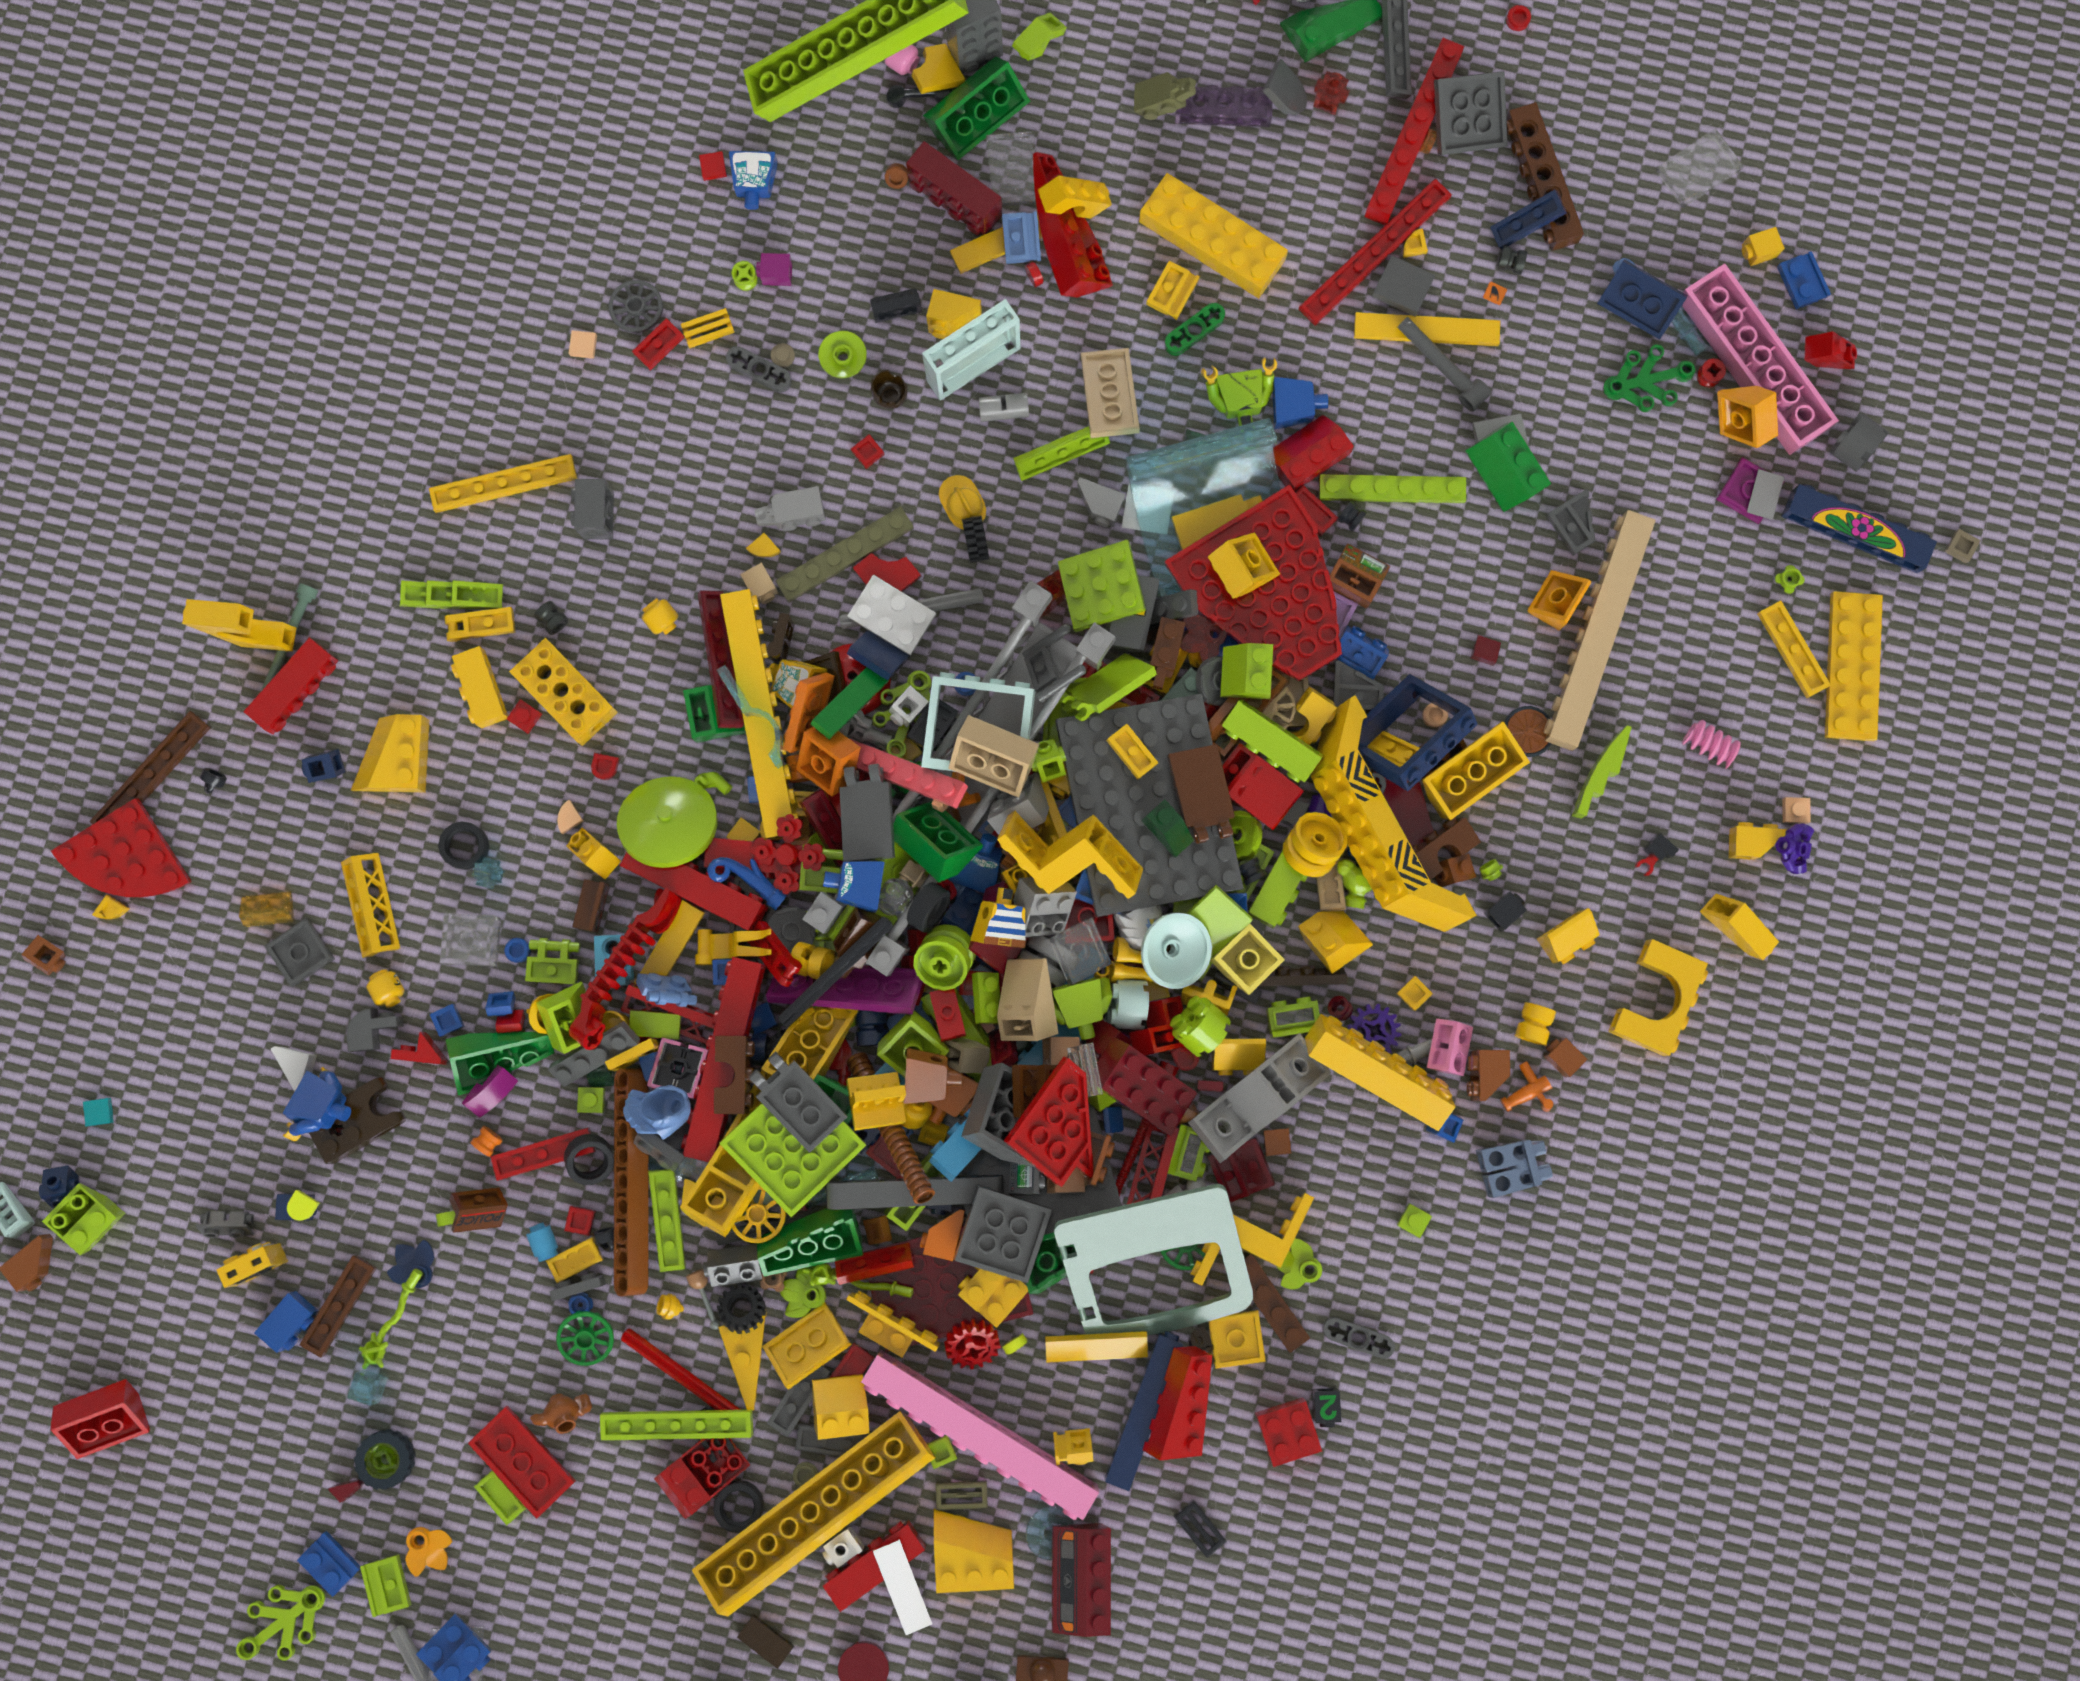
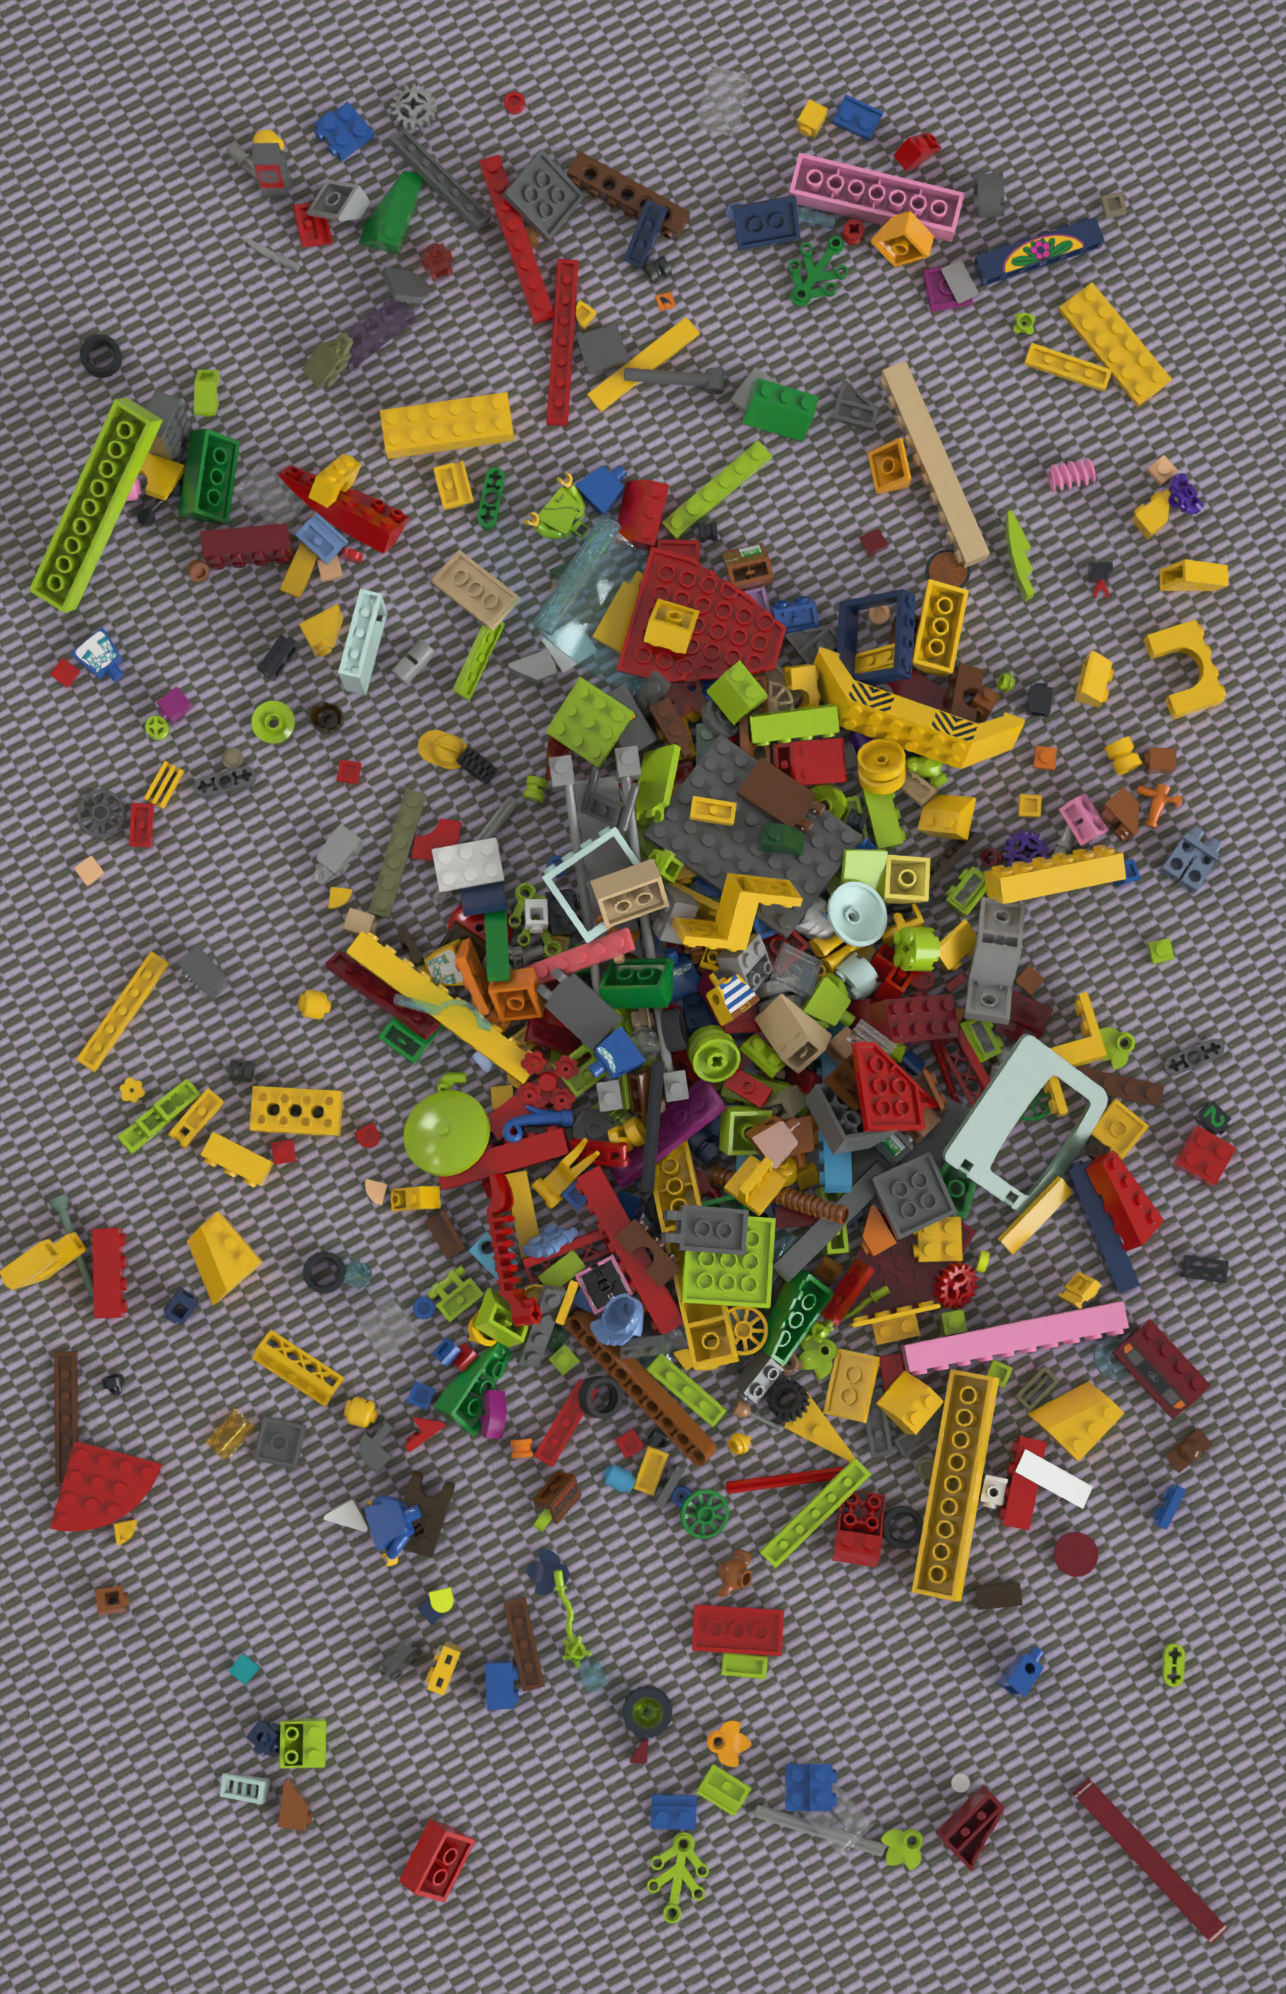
camera: 50 degrees left, 0 degrees up
(446, 549) = (126, 1094): none -> yellow plant
(941, 1372) = (952, 1322): none -> lime brick
(1004, 603) = (535, 789): none -> lime wheel
(1006, 272) = (331, 571): none -> light nougat tile
(1465, 964) = (1044, 758): none -> orange plate

